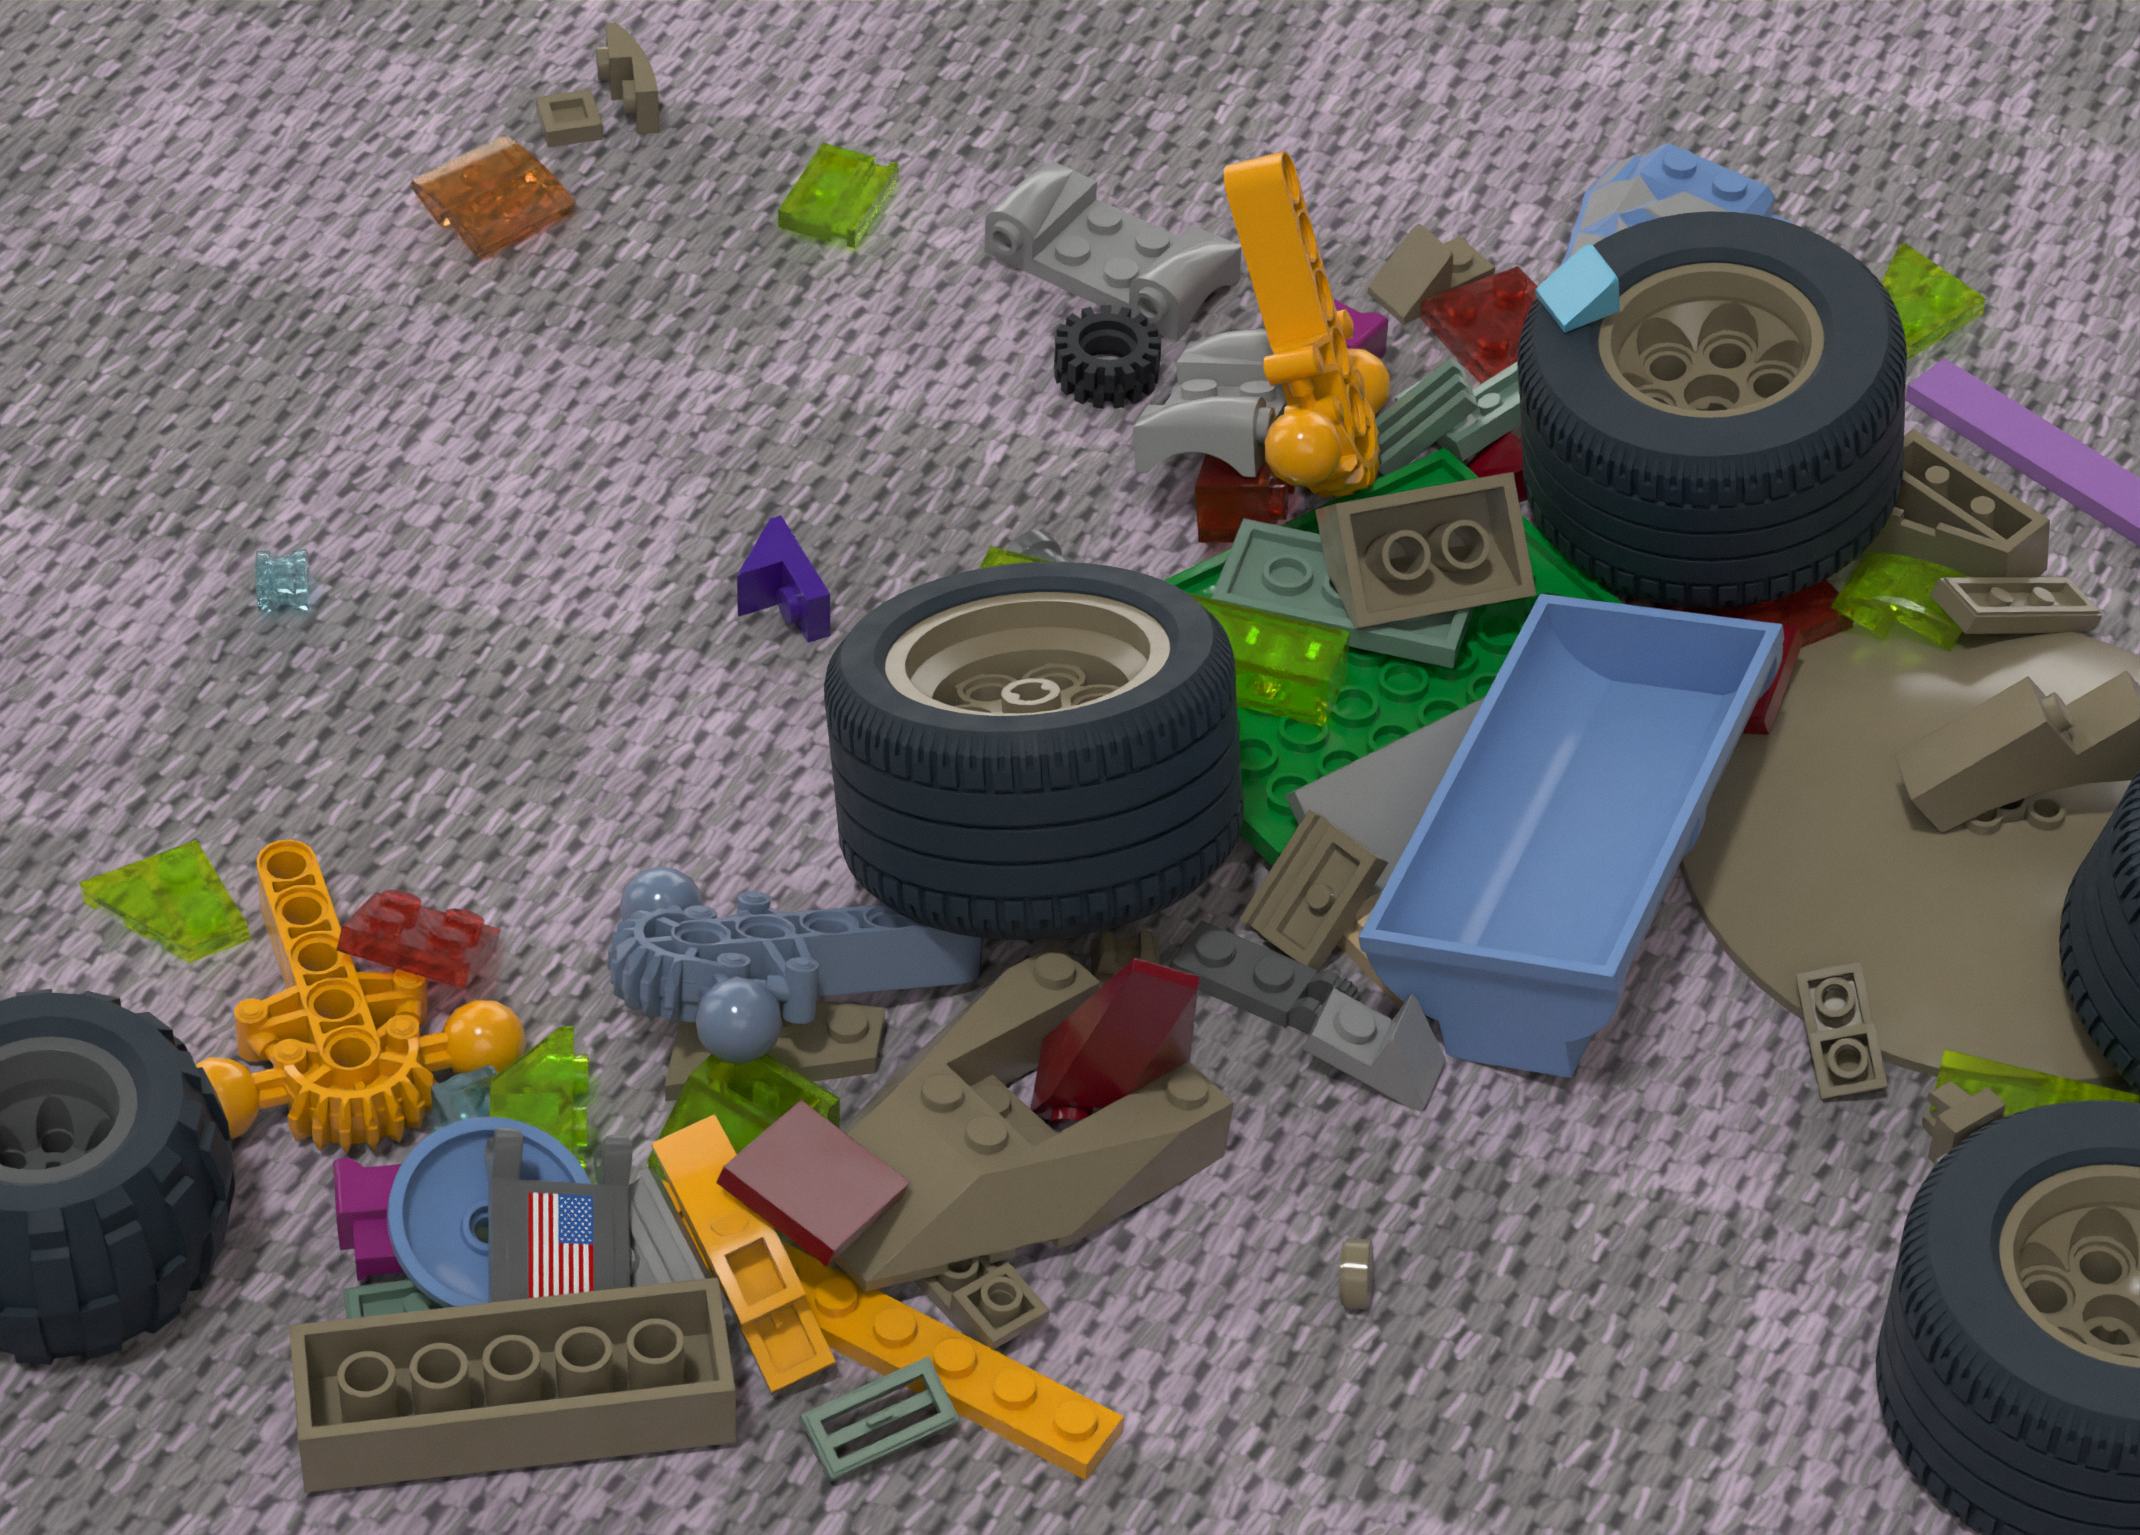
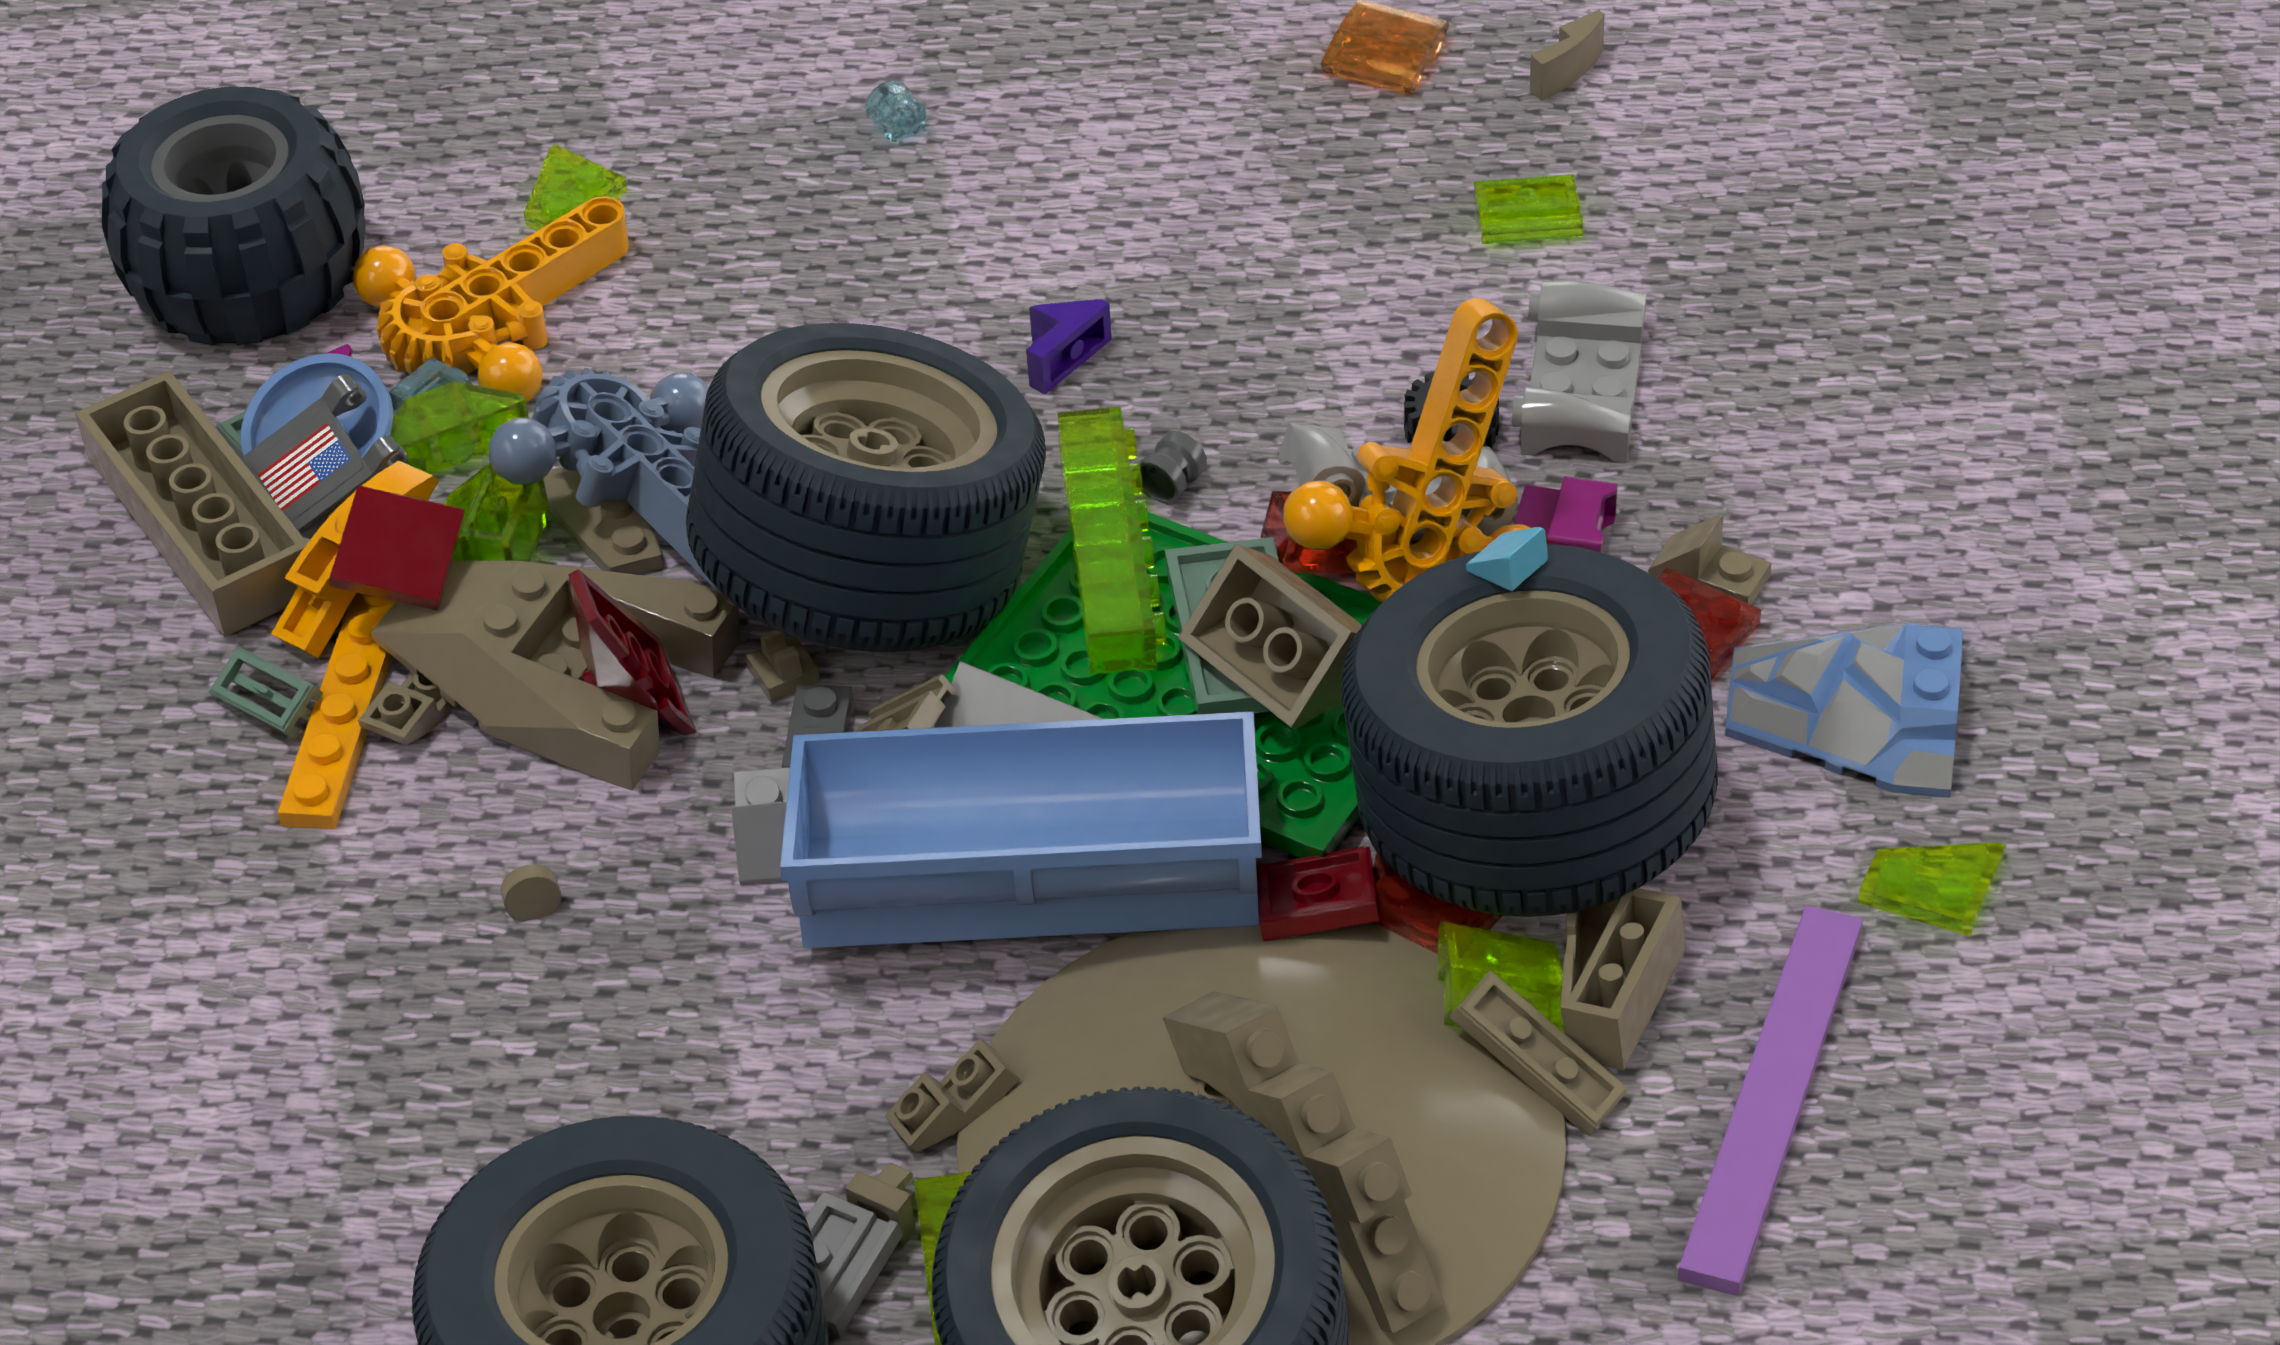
camera: 70 degrees right, 0 degrees up
(418, 939) = (572, 302): clear red plate -> none
(569, 118) = (1508, 48): dark tan tile -> none

